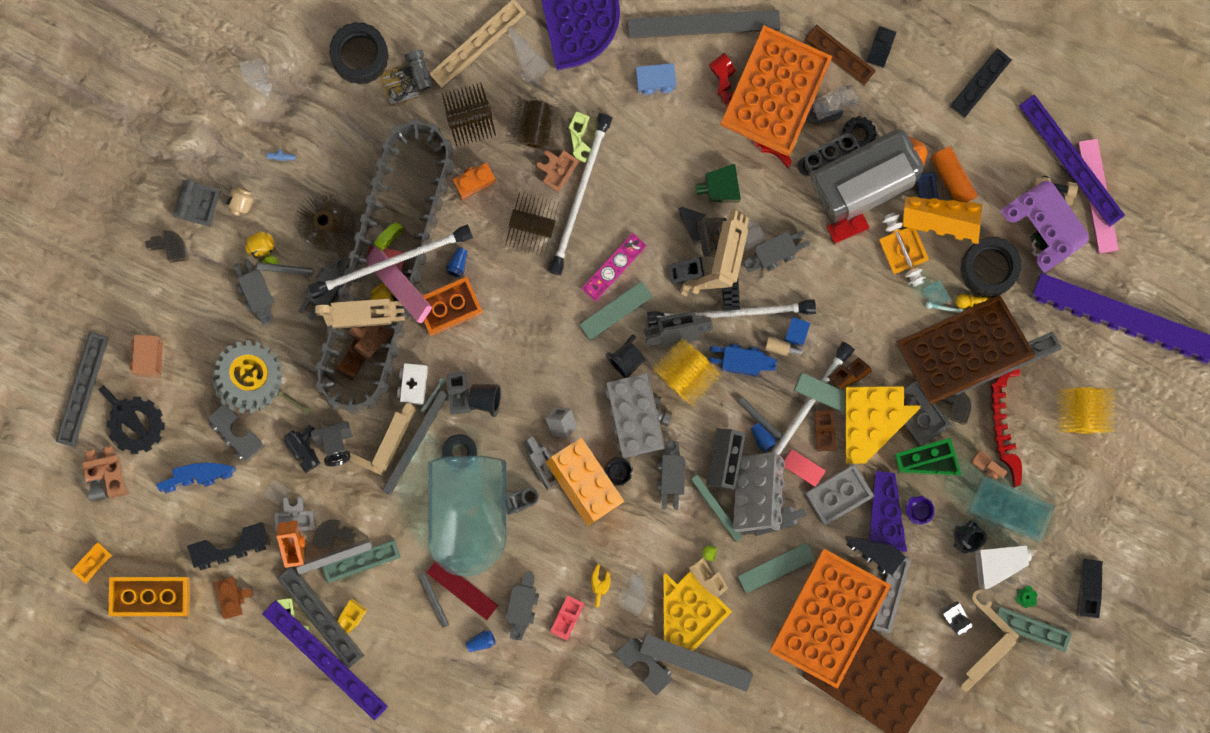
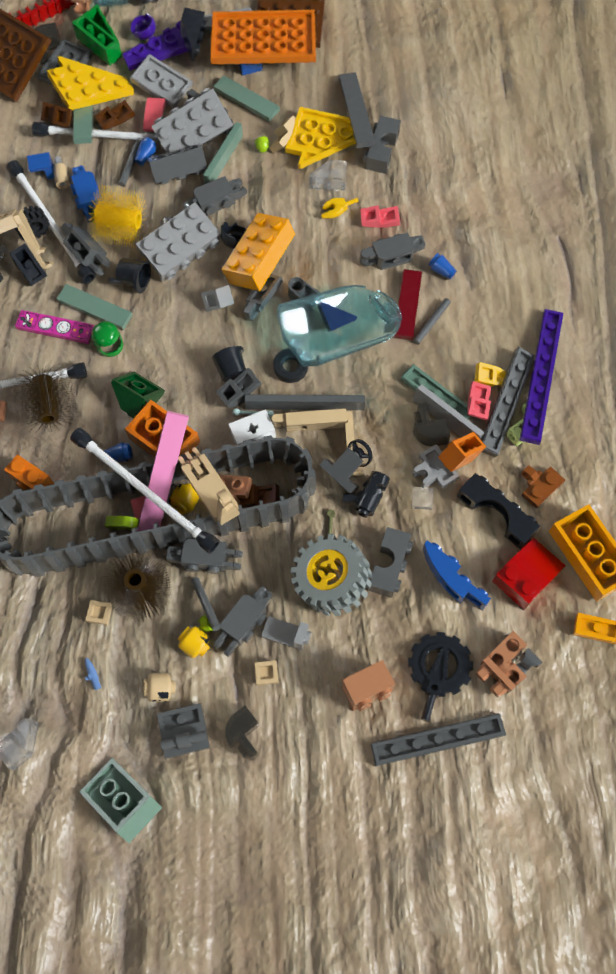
camera: 115 degrees left, 15 degrees down
(164, 539) = (528, 573): none -> red slope
(172, 133) = (120, 800): none -> sand green slope
(204, 288) = (266, 673): none -> tan plate
(226, 320) = (287, 633): none -> light grey bracket
(326, 183) = (99, 612): none -> tan plate
(332, 590) = (478, 400): none -> coral slope
(476, 512) = (334, 317): none -> dark blue slope
(504, 305) = (135, 392): none -> dark green slope
(572, 305) = (104, 335): none -> green helmet

